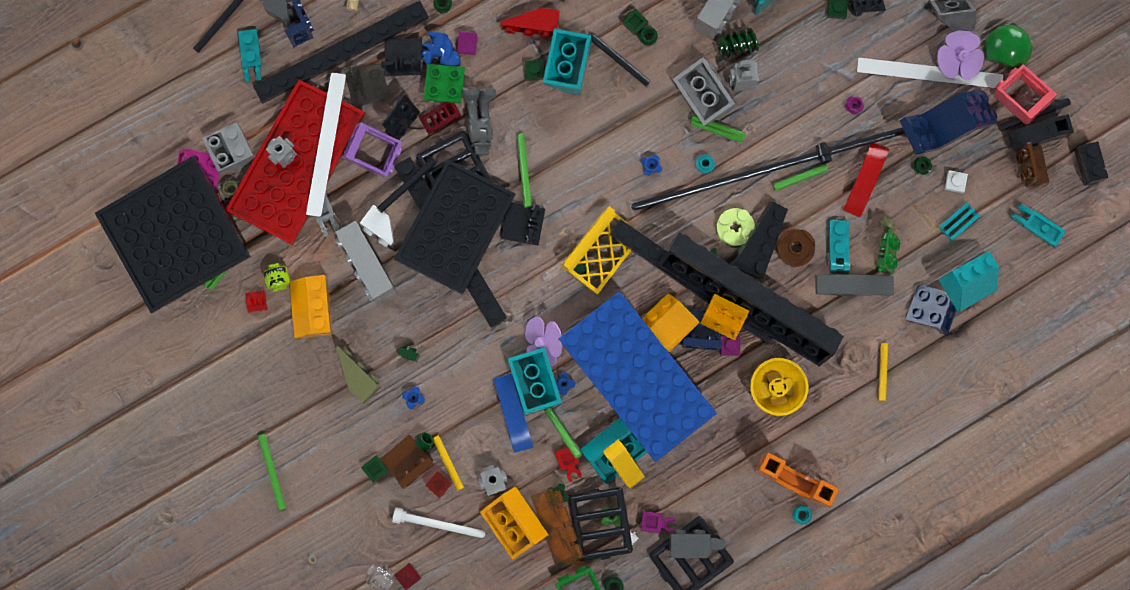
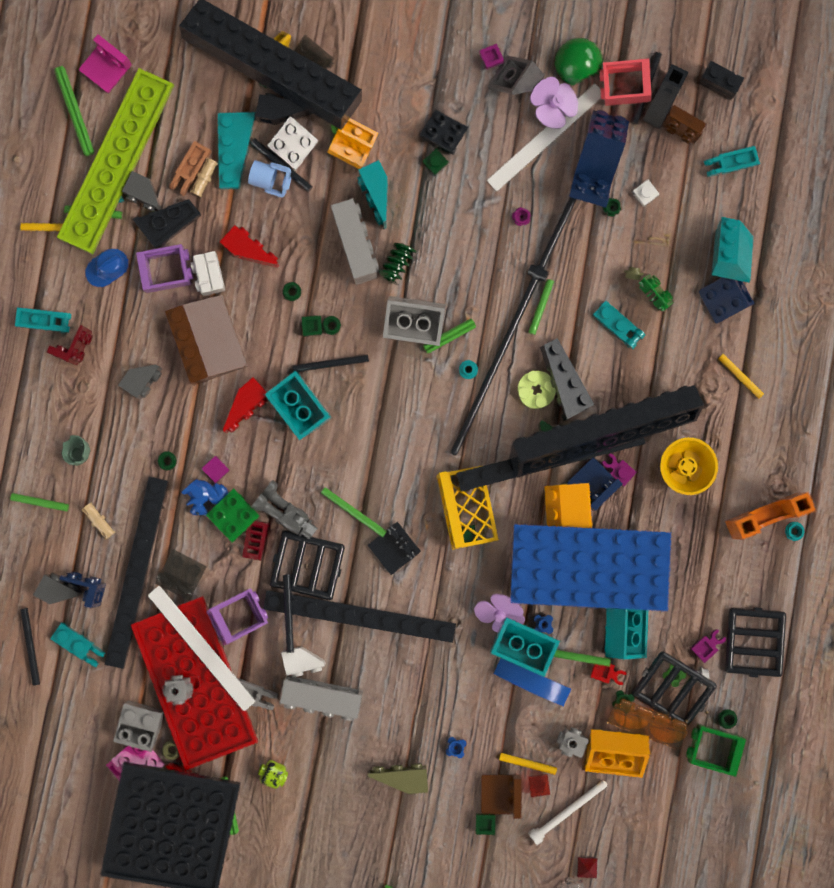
camera: 50 degrees left, 5 degrees up
(256, 301) = (277, 804): red tile -> none
(311, 307) = (319, 767): light orange slope -> none
(400, 118) = (231, 572): black hinge -> none
(403, 57) = (183, 528): black hinge -> none
(409, 353) = (419, 722): dark green plate -> none
(424, 441) = (497, 768): dark green plate -> none
(455, 227) = (353, 604): black plate -> none
(534, 70) = (281, 435): dark green plate -> none
(623, 464) = (645, 634): yellow beam -> none
(651, 160) = (428, 412): blue plate -> none
(693, 545) = (750, 633): dark grey hinge -> none
(724, 317) = (601, 460): light orange slope -> none
(744, 76) = (428, 281): light grey hinge -> none
(807, 248) = (600, 351): reddish brown plate -> none
(854, 285) = (658, 340): dark grey slope -> none
(866, 180) = (586, 258): red slope -> none
(970, 211) = (678, 234): teal tile -> none

